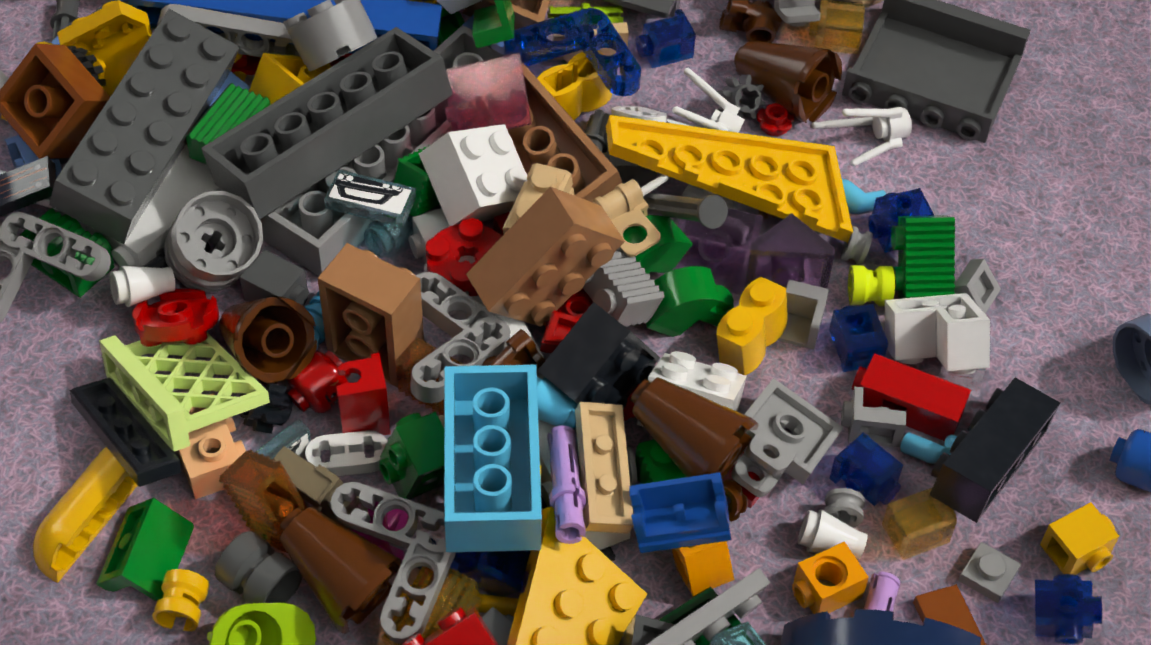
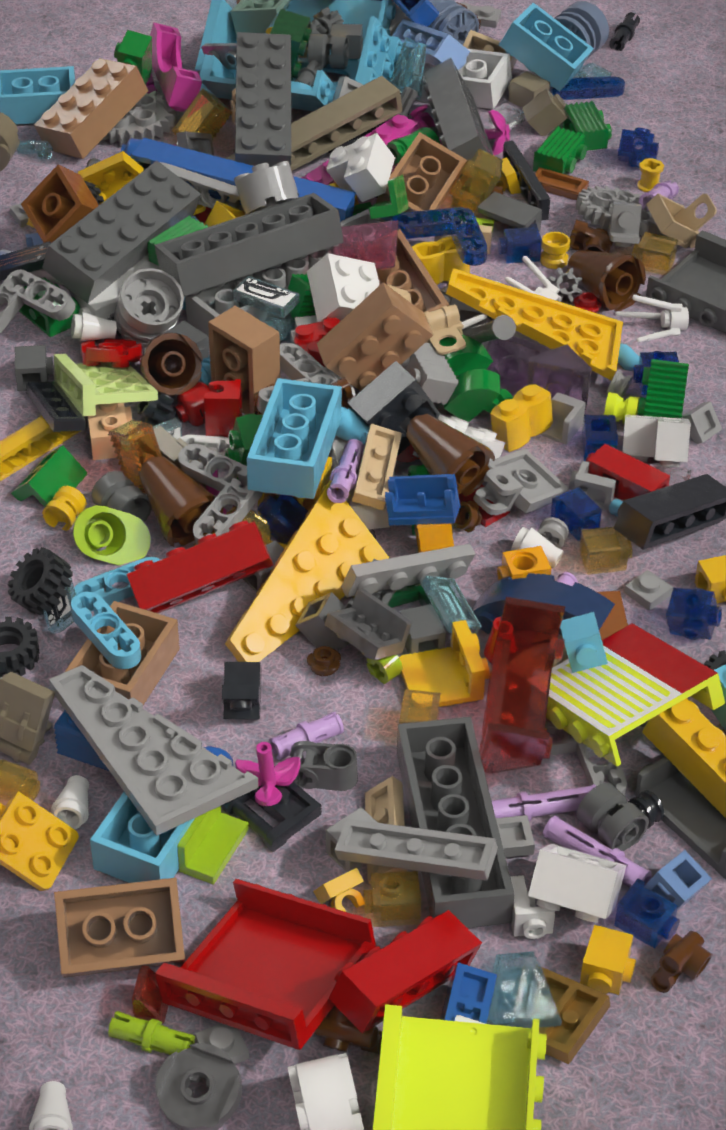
camera: 15 degrees right, 10 degrees down
(71, 360) = (32, 365): none -> dark grey brick
(712, 41) = (555, 248): none -> yellow wheel

